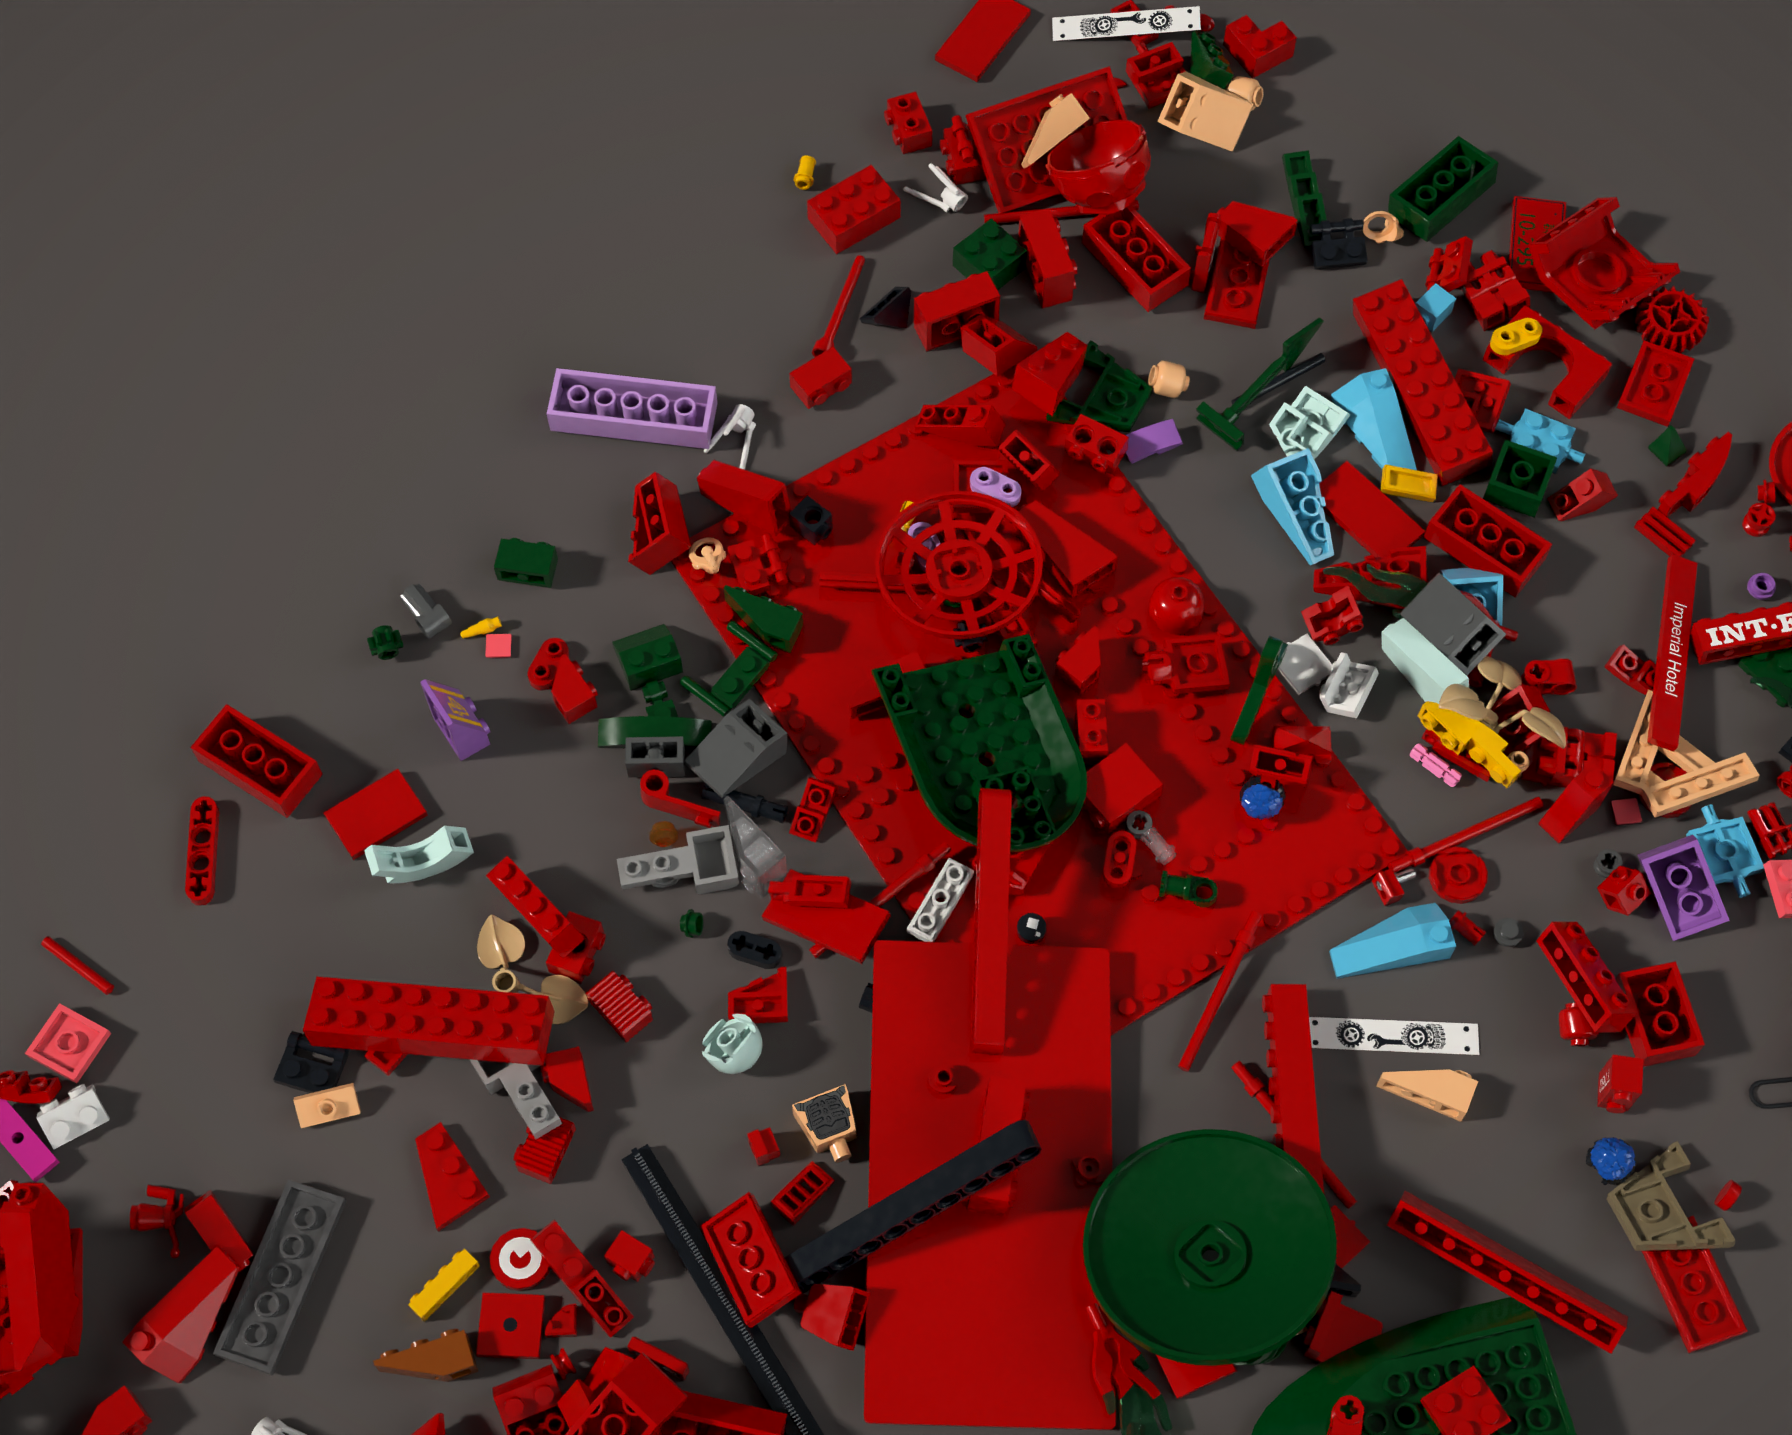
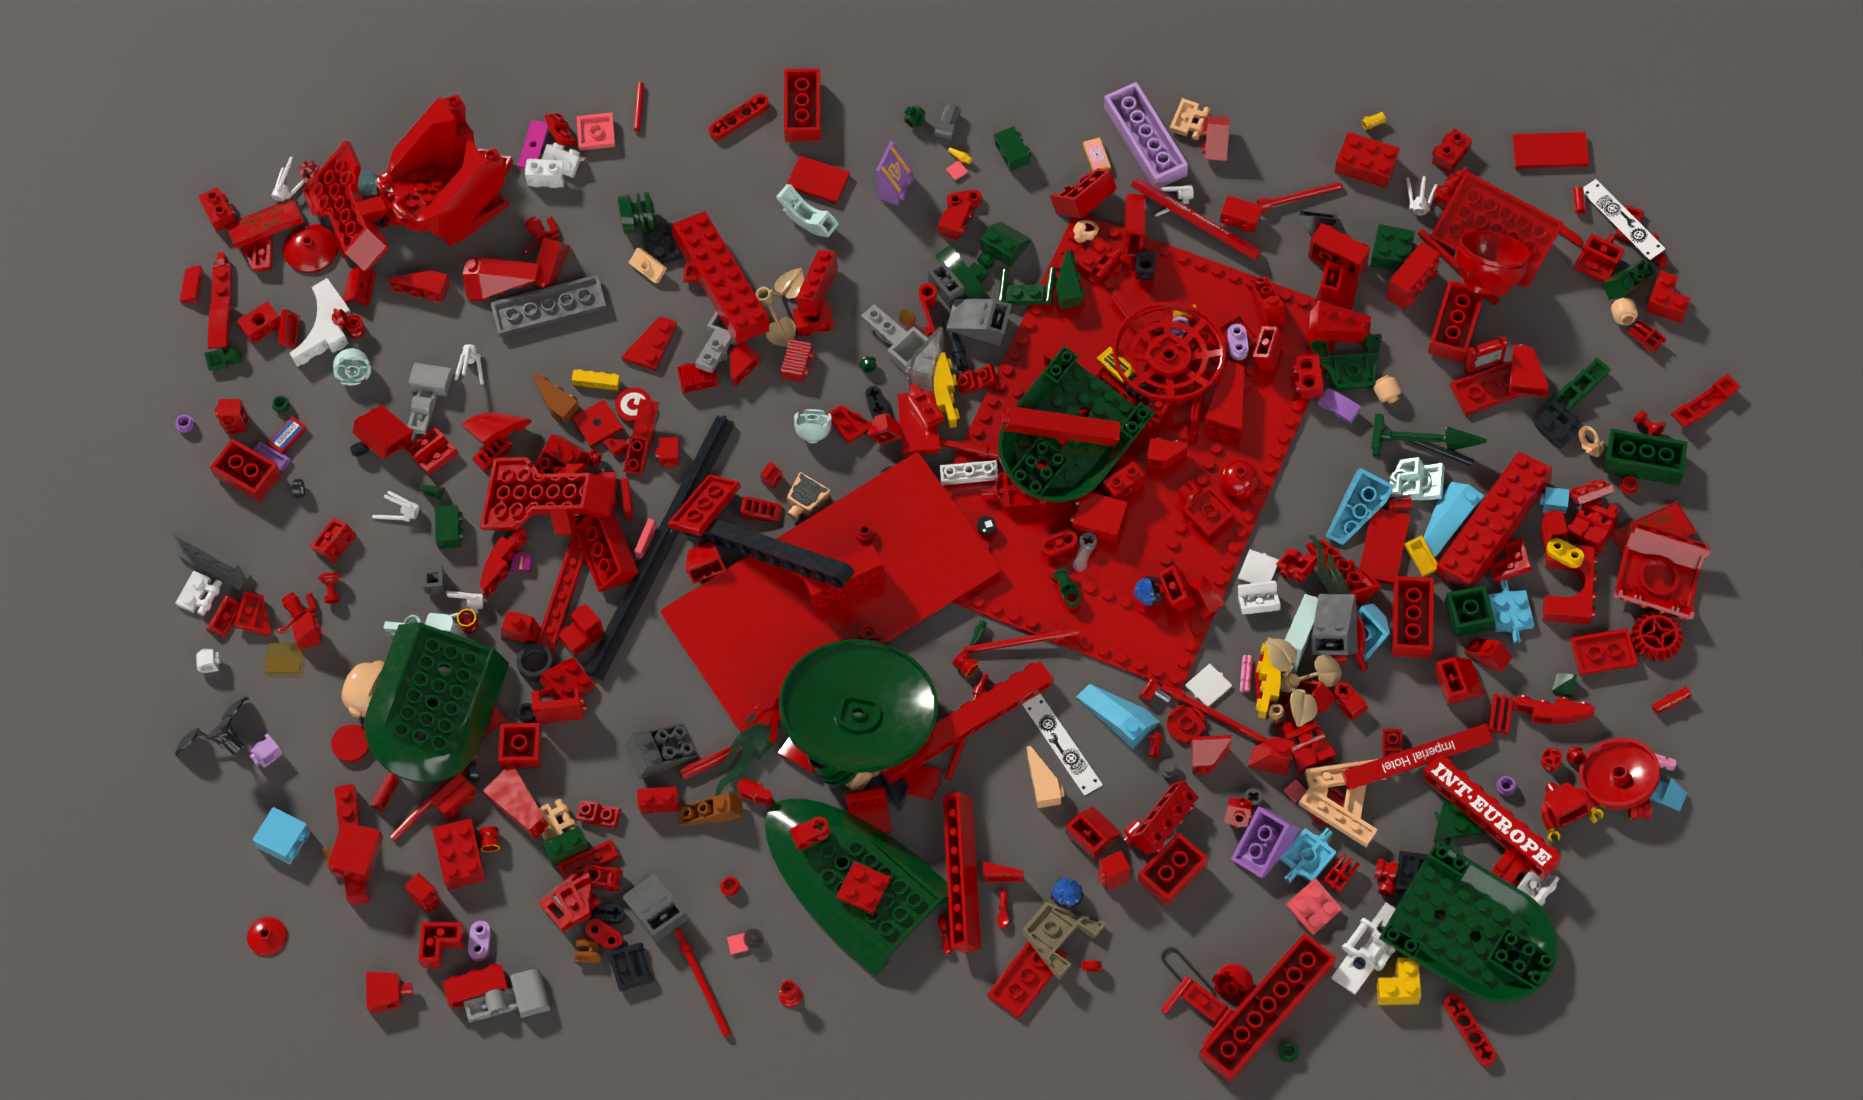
camera: 60 degrees right, 0 degrees up
(76, 1150) = (544, 173): none -> white bracket
(244, 1063) = (636, 212): none -> dark green wheel
(609, 480) = (1096, 154): none -> bright pink tile
(639, 355) = (1184, 119): none -> light nougat plate
(701, 334) = (1217, 135): none -> brick
(738, 1372) = (645, 539): none -> coral tile
(787, 428) = (1196, 218): none -> red tile
(802, 859) = (944, 389): none -> yellow slope
(807, 960) = (884, 429): none -> red slope
(908, 639) = (1106, 360): none -> yellow tile
(981, 745) = (1061, 426): none -> red brick
(991, 921) = (963, 493): red beam -> none
(1055, 125) = (1501, 221): light nougat slope -> none
(1069, 48) = (1579, 200): none -> red axle
(1170, 1034) = (978, 632): none -> dark green piece
(1205, 111) = (1587, 295): light nougat slope -> none
(1208, 1078) = (965, 664): none -> red wheel
(1268, 665) = (1220, 543): dark green piece -> none
(1290, 93) = (1645, 335): none -> red arm
(1326, 460) = (1399, 503): none -> red pin
(1410, 91) = (1706, 402): none -> red slope
(1411, 159) = (1655, 429): none -> red piece
(1421, 817) = (1208, 685): none -> white piece
(1461, 226) = (1629, 485): none -> red plate
(1475, 329) = (1553, 526): none -> red brick
(1525, 875) = (1209, 752): none -> slope
(1526, 1232) = (997, 873): none -> red slope
(1545, 1076) = (1092, 832): none -> red slope
(1560, 1344) = (942, 924): none -> red piece
(1592, 1262) = (1003, 918): none -> red piece
(1598, 549) = (1458, 680): none -> red slope
(1759, 357) = (1671, 700): none -> red pin

